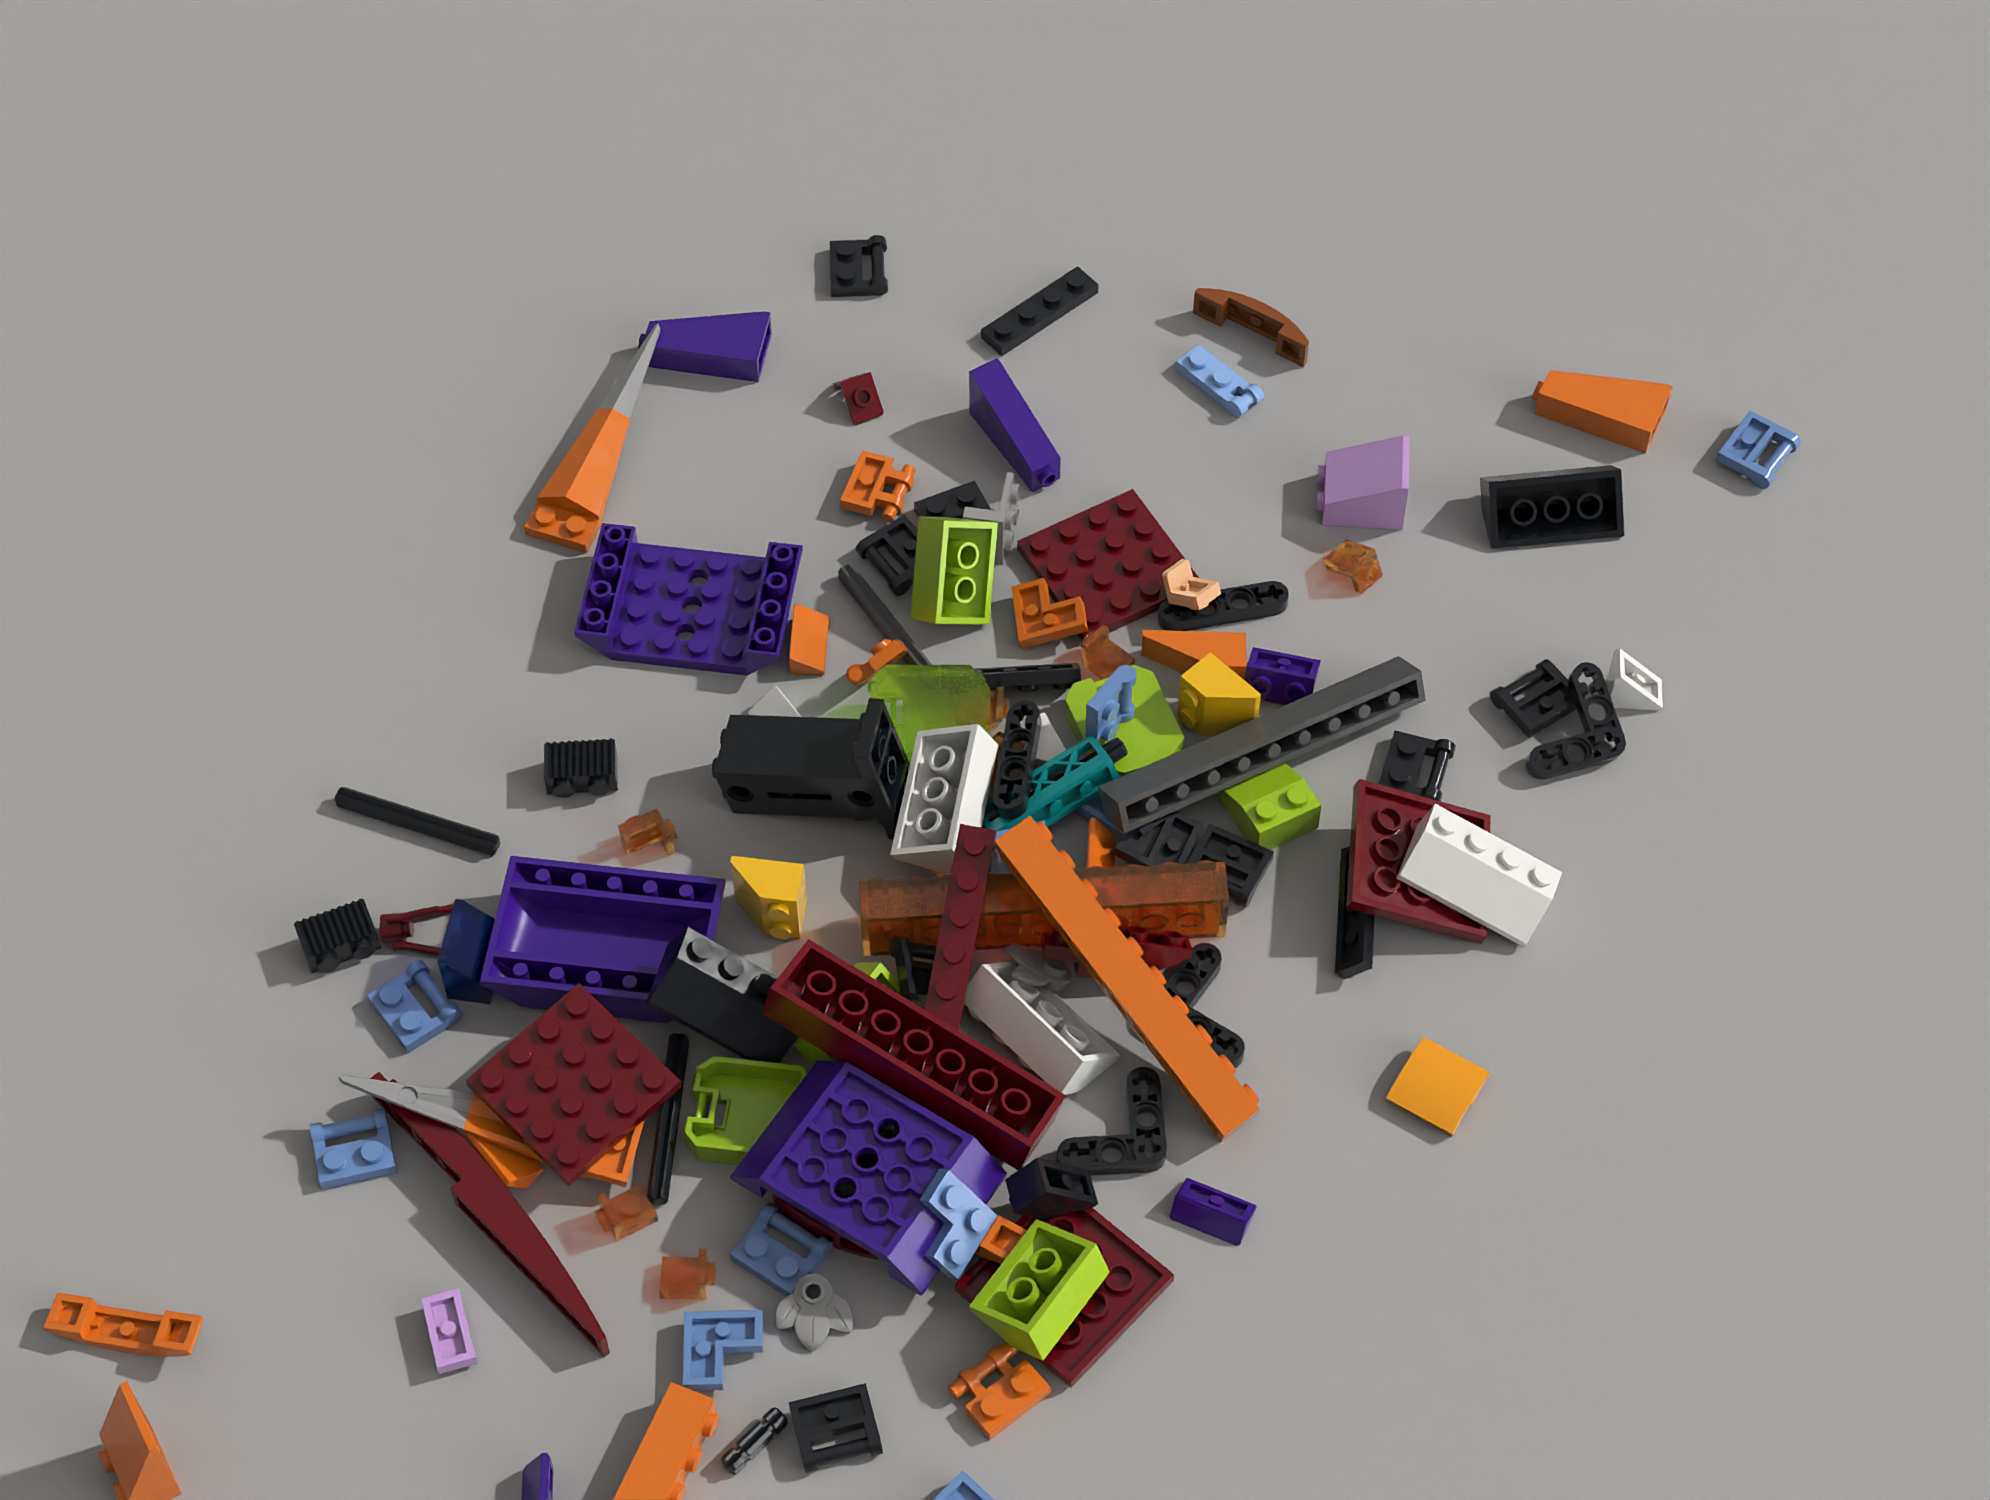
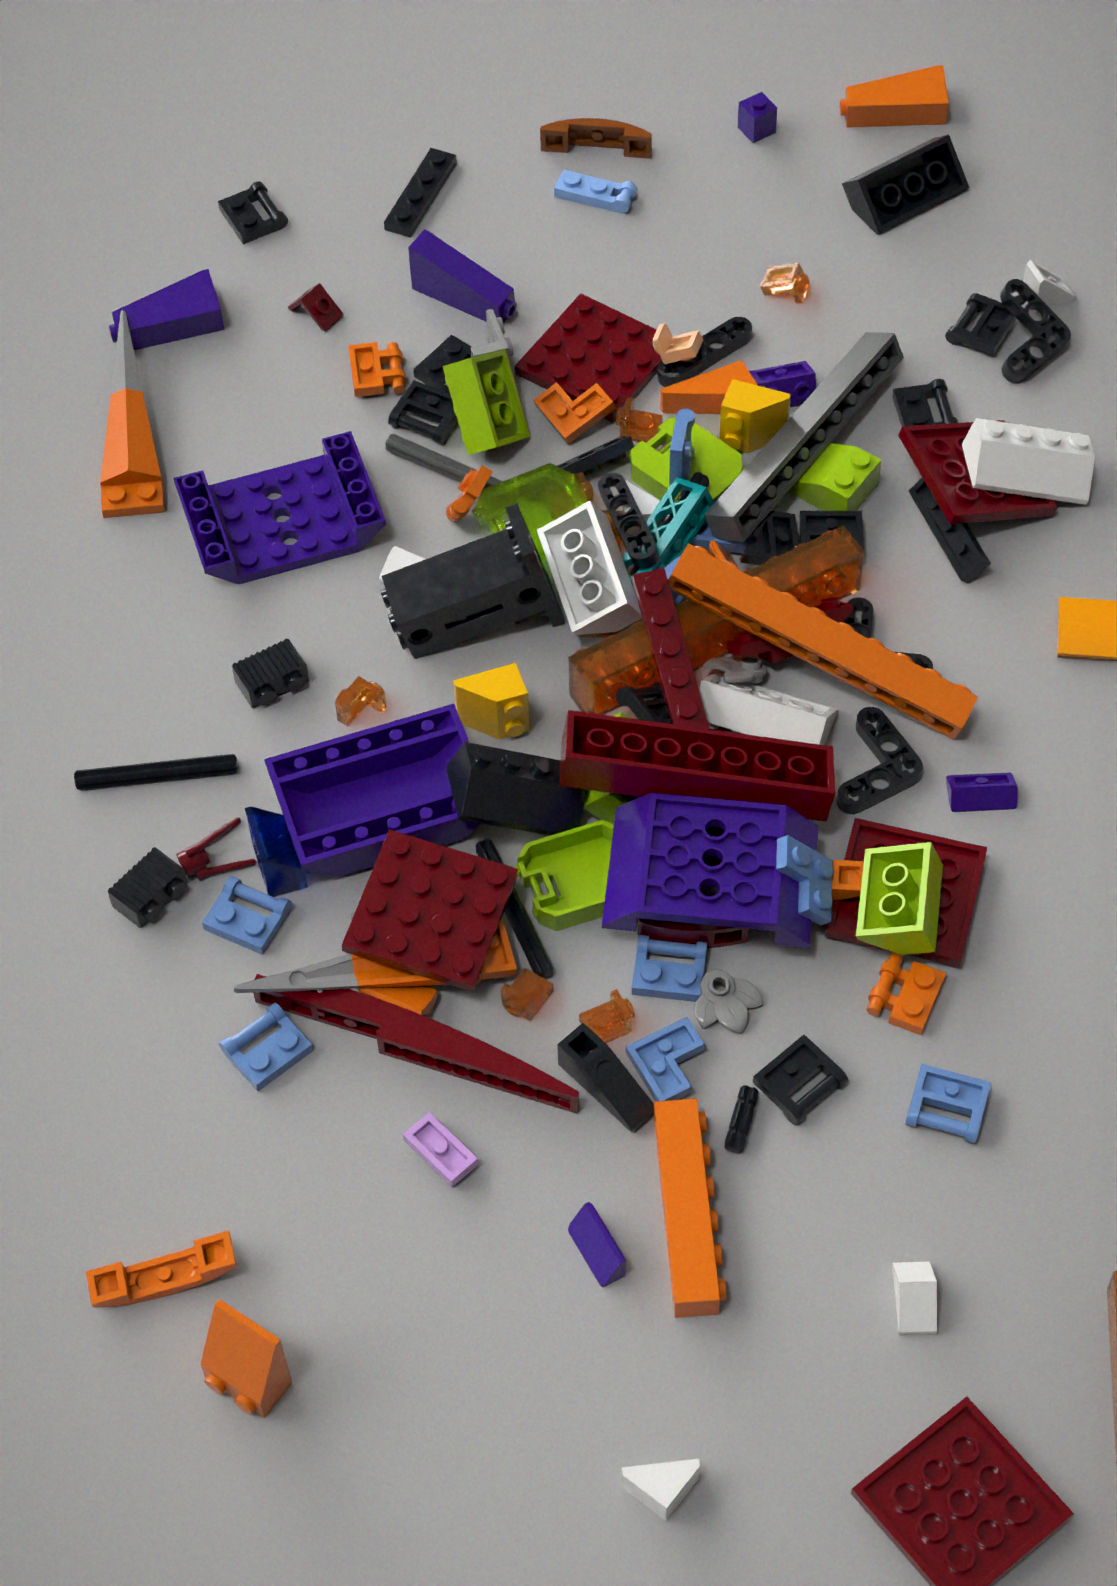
camera: 25 degrees left, 0 degrees up
(643, 1334) = (604, 1077): none -> black slope
(808, 641) = (395, 506): orange slope -> none
(1050, 1189) = (857, 825): black slope -> none
(1365, 485) = (762, 219): lavender slope -> none
(1437, 366) = (757, 117): none -> dark purple brick
(1748, 444) = (1018, 89): medium blue plate -> none

